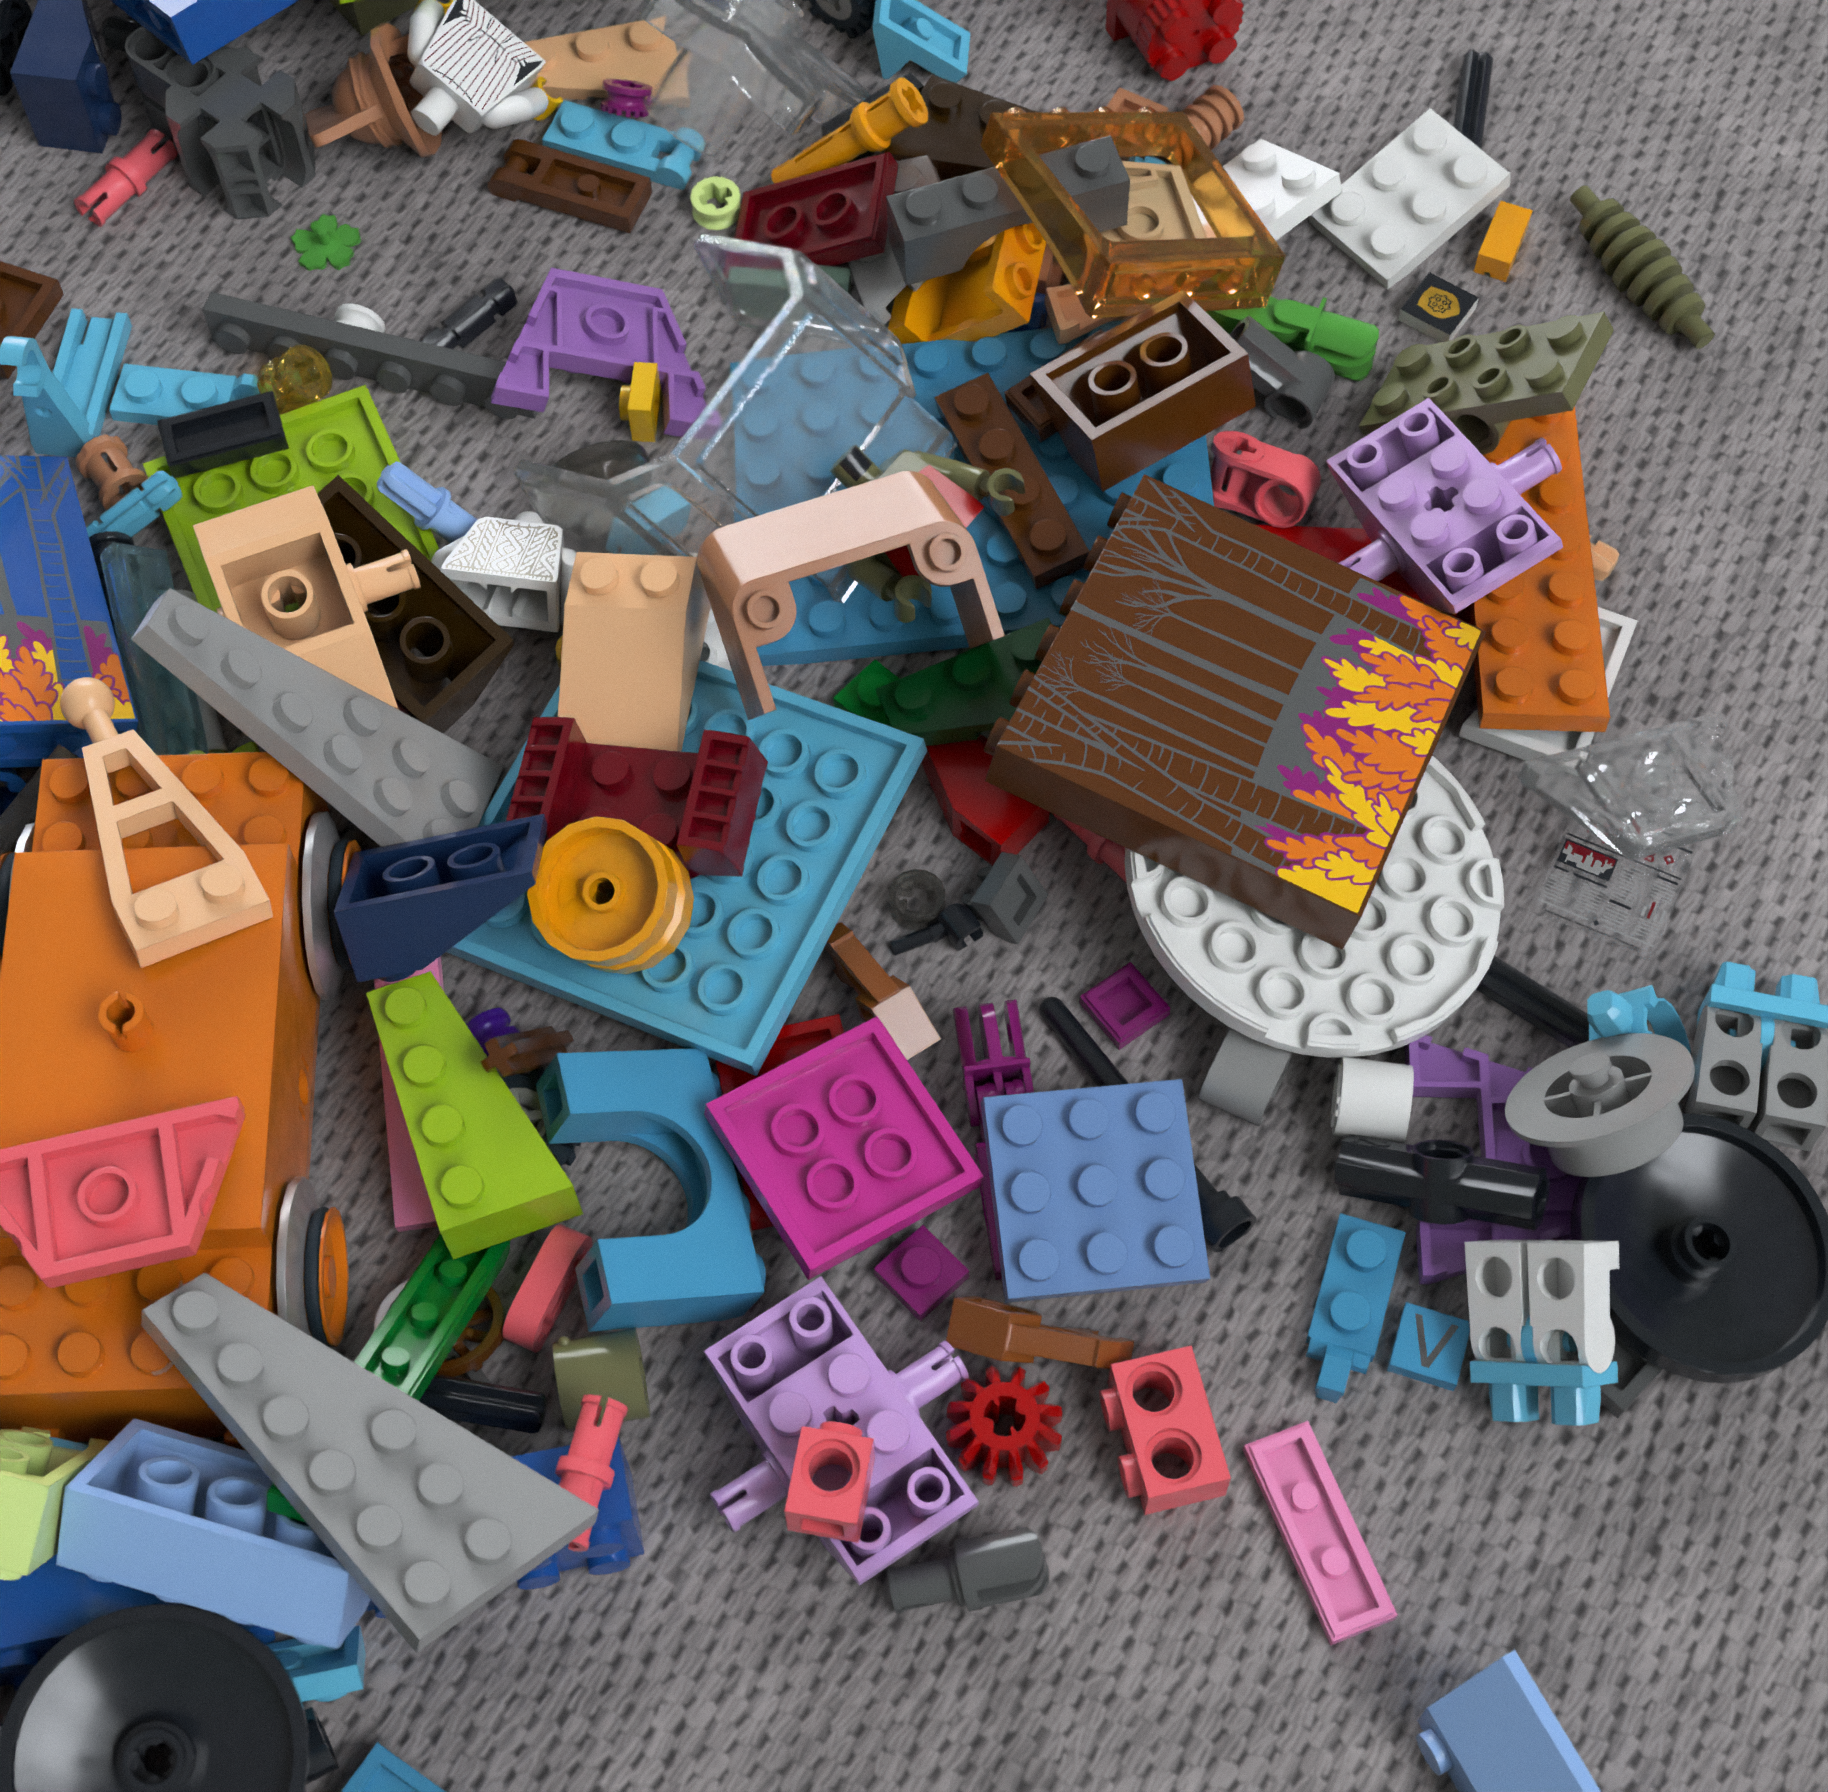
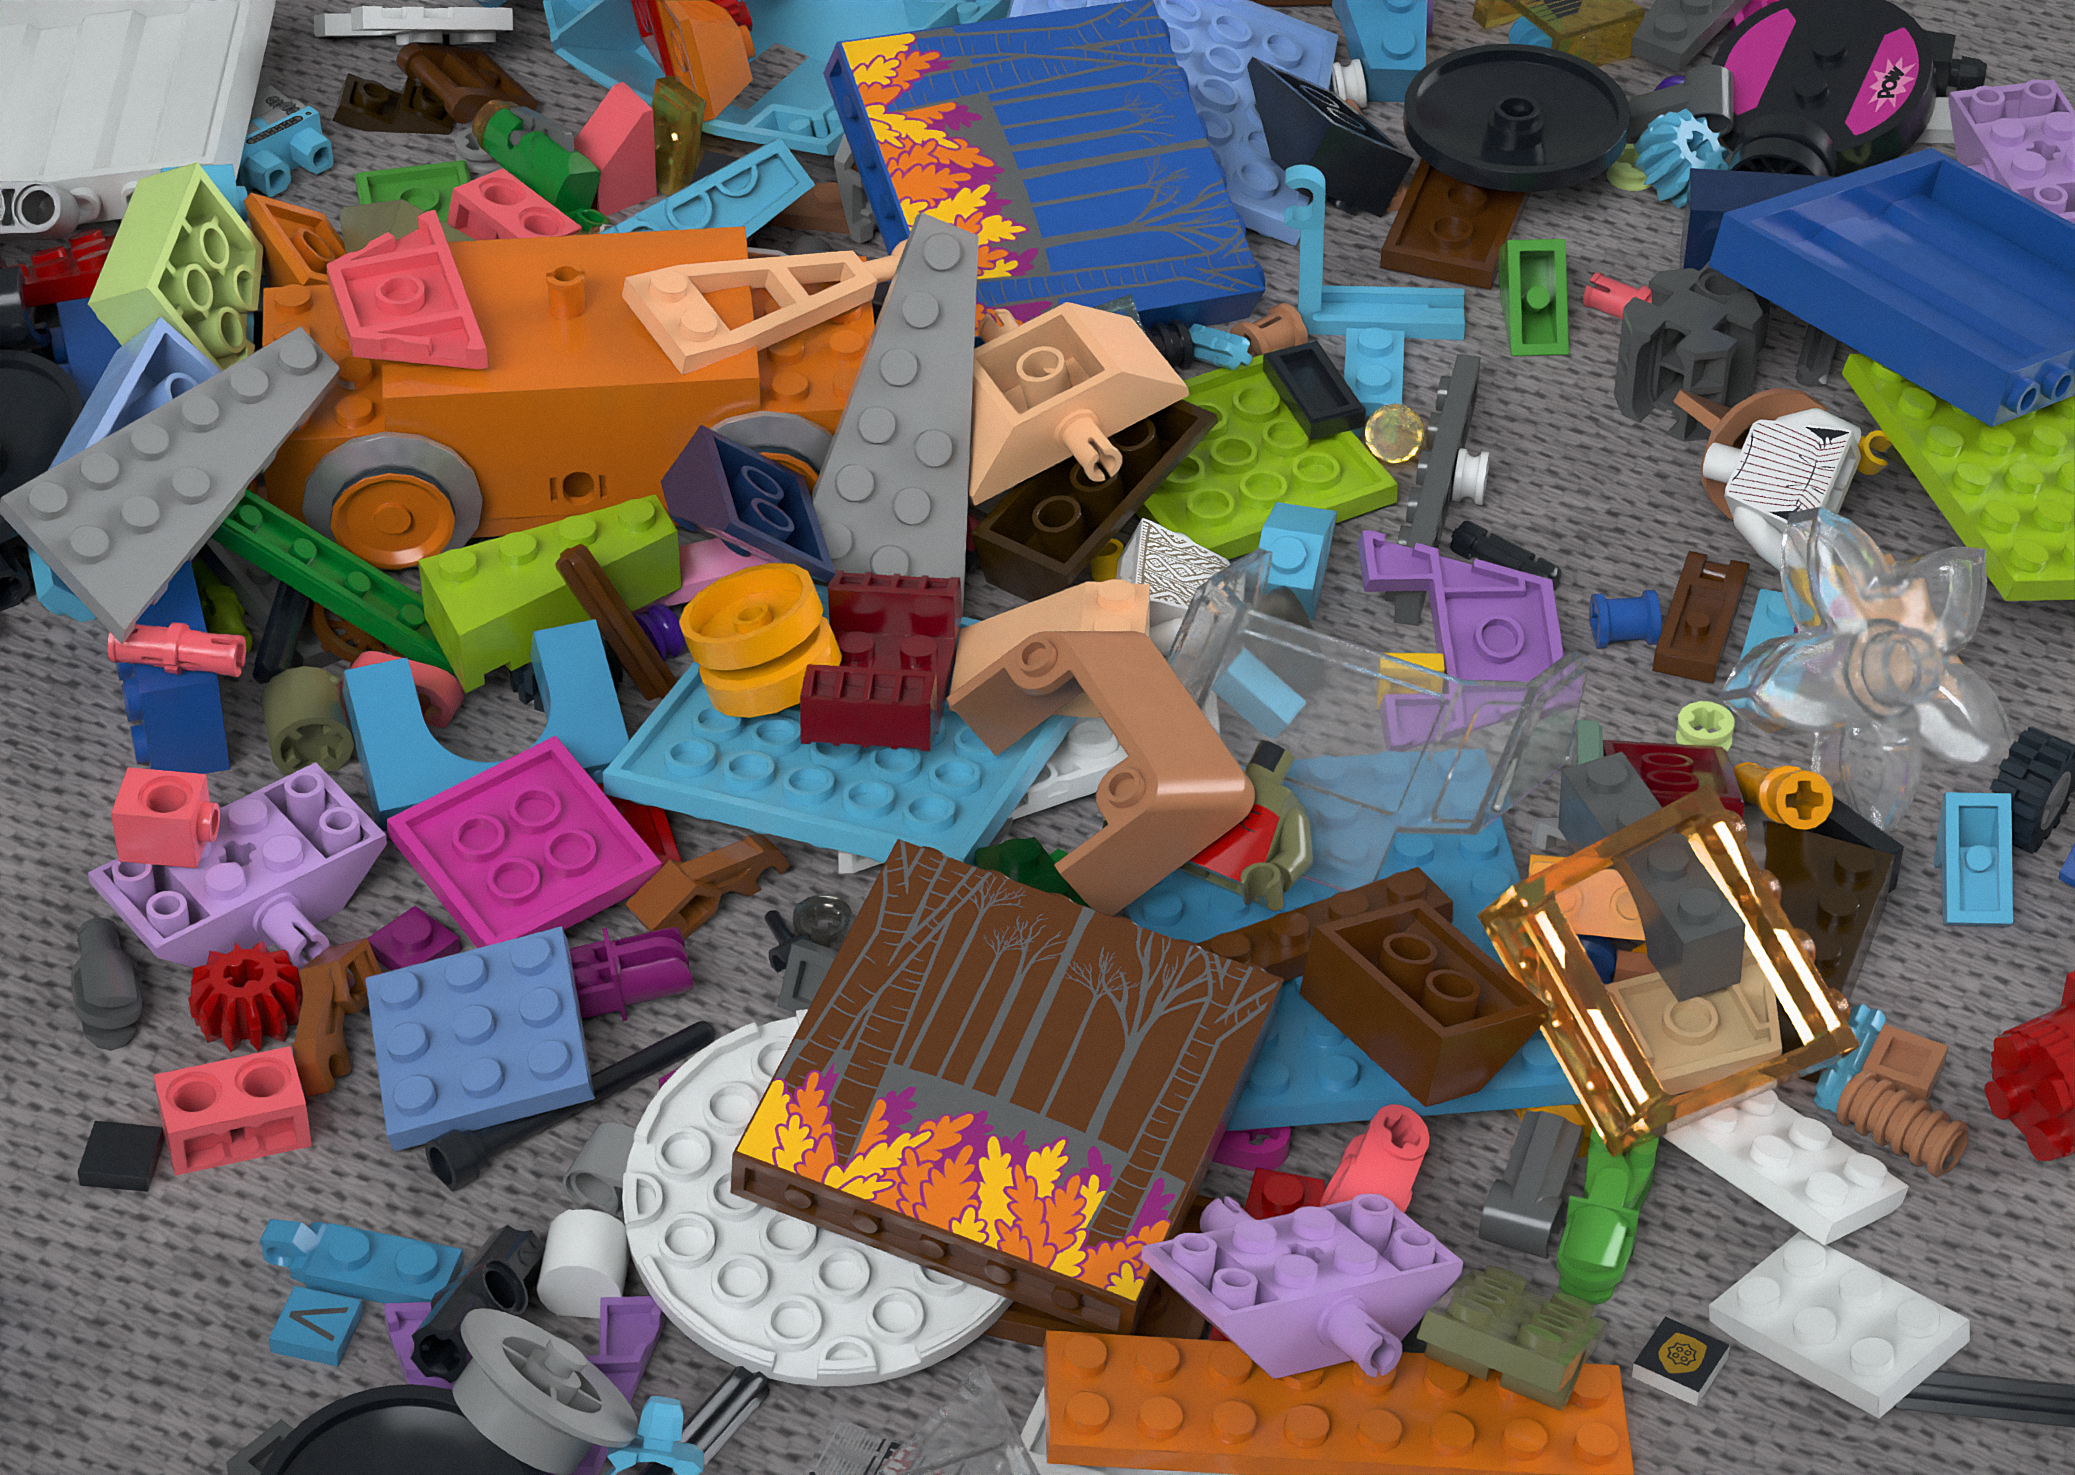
camera: 85 degrees right, 20 degrees down
(98, 250) = (1534, 296): none -> bright green slope
(326, 243) = (1594, 455): bright green plant -> none
(428, 505) = (1239, 525): light blue axle -> none
(470, 464) = (1300, 550): none -> medium azure slope
(572, 231) = (1625, 618): none -> blue bush
(1208, 1546) = (121, 1156): none -> black tile
(1319, 1533) = (128, 1239): bright pink tile -> none
(1503, 240) = (1797, 1421): light orange piece -> none
(1542, 1322) = (277, 1369): white hips -> none

